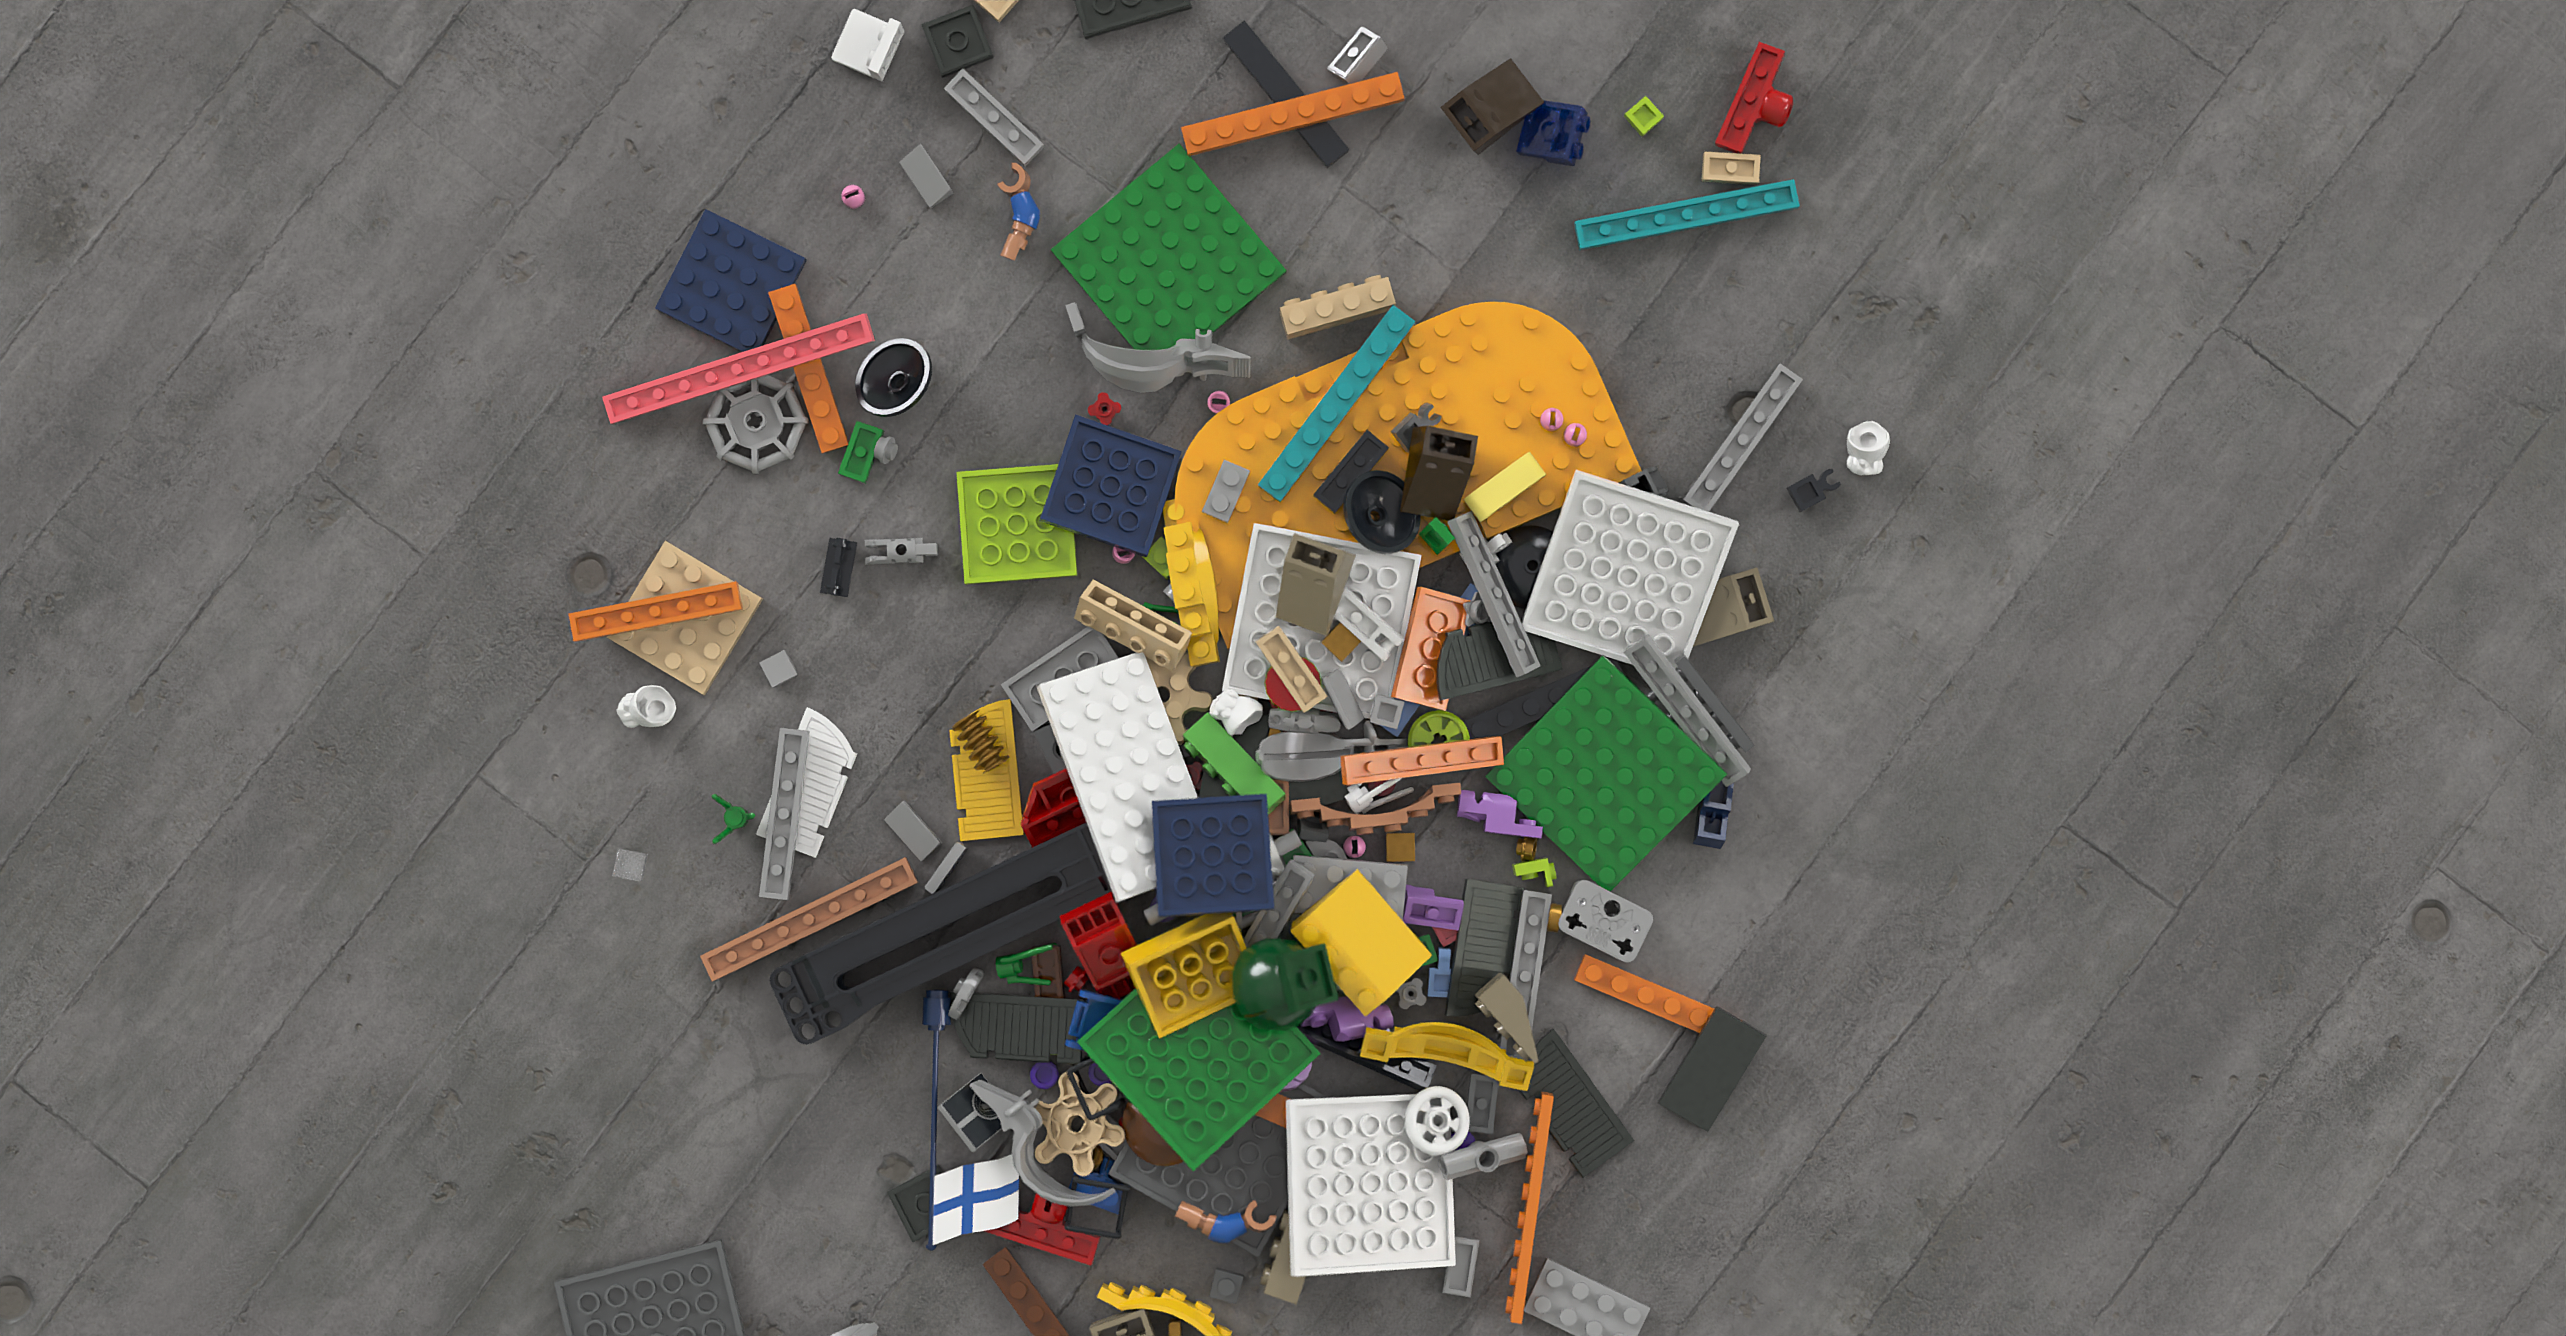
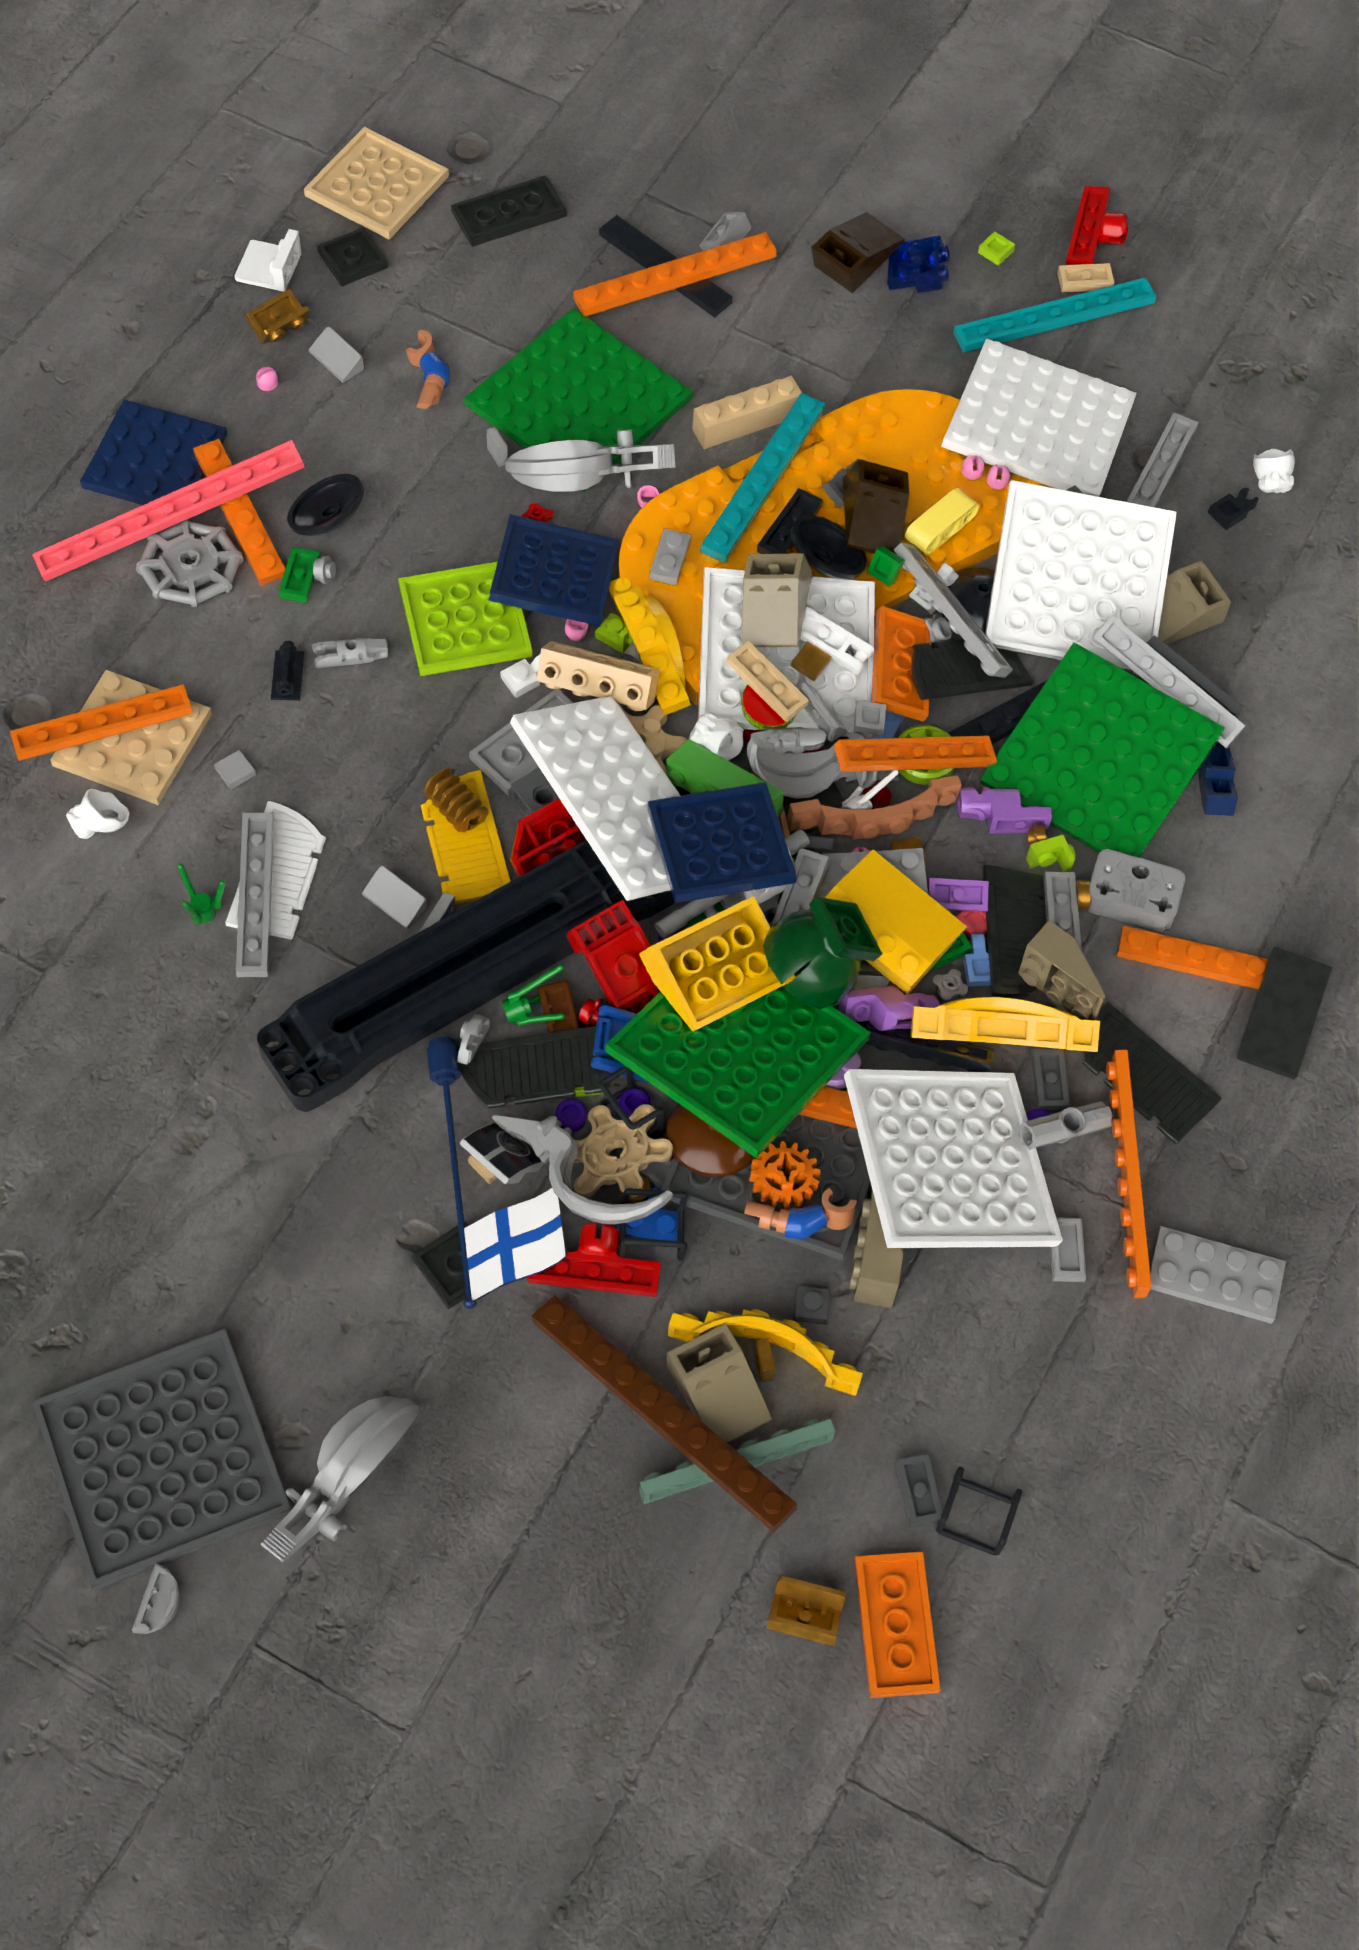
camera: 10 degrees left, 25 degrees down
(630, 864) = (90, 964): clear plate -> none
(809, 919) = (272, 1002): nougat plate -> none
(870, 120) = (277, 316): none -> pearl gold bracket
(994, 117) = (394, 304): light grey plate -> none
(1064, 598) = (521, 676): none -> white plate
(1234, 1181) = (771, 1180): none -> orange gear
(1459, 1125) = (1008, 1092): white plate -> none
(1636, 360) = (1039, 419): none -> white plate

